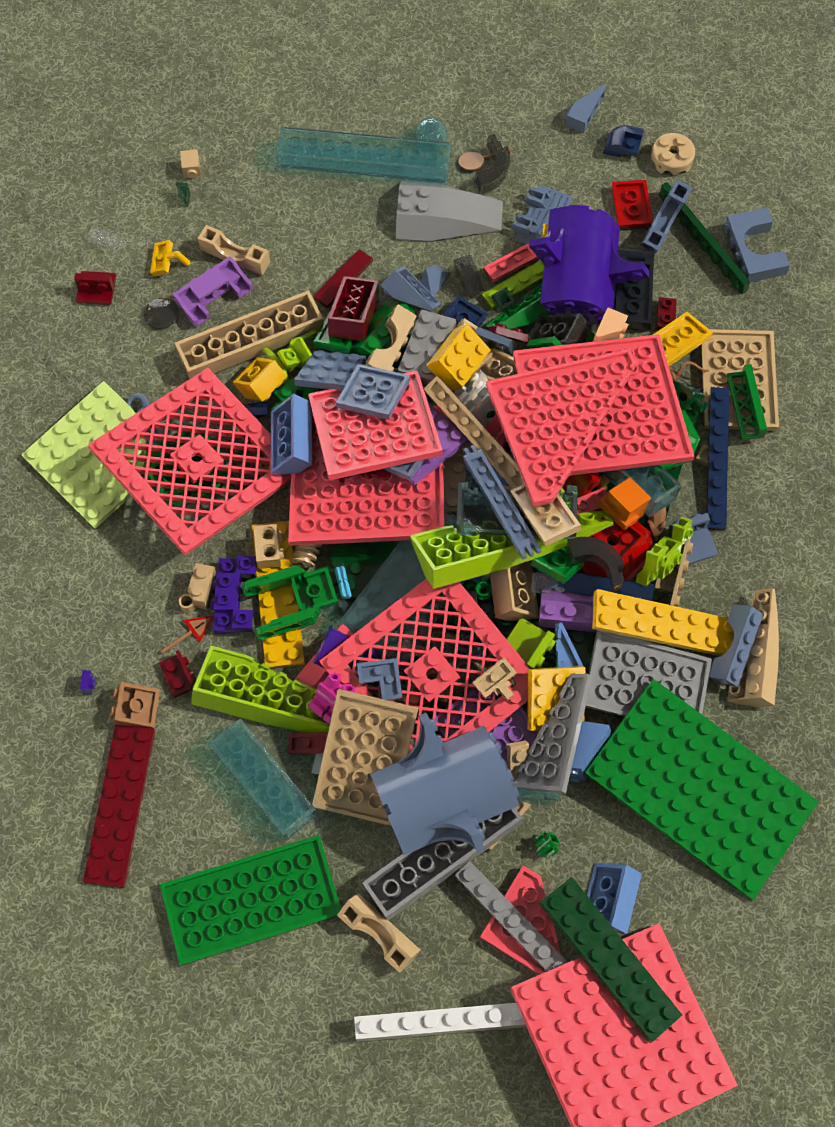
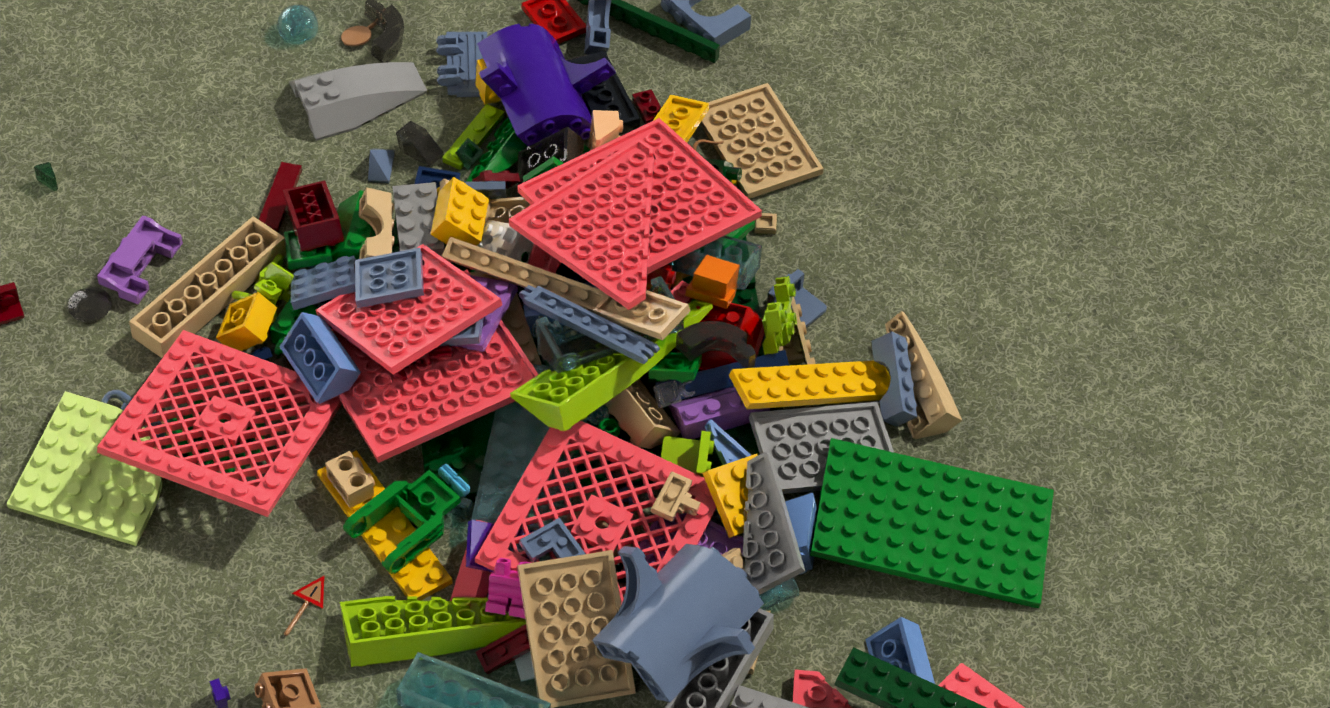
camera: 30 degrees left, 15 degrees down
(161, 258) = (60, 248): yellow plate -> none
(177, 674) = (318, 646): dark red bracket -> none
(190, 163) = (38, 144): tan brick -> none
(199, 588) = (295, 554): tan hinge -> none
(227, 589) = (331, 551): dark purple bracket -> none
(250, 258) = (117, 212): tan arch -> none
(304, 555) = (394, 470): tan piece -> none
(363, 154) = (234, 67): clear light blue brick -> none
(407, 288) = (357, 177): sand blue slope -> none
(510, 263) = (456, 117): coral plate -> none
(546, 844) = (808, 640): green gear -> none
(657, 523) = (751, 297): medium nougat animal -> none
(718, 458) = (777, 217): dark blue plate -> none
(754, 404) = (786, 155): green fence -> none

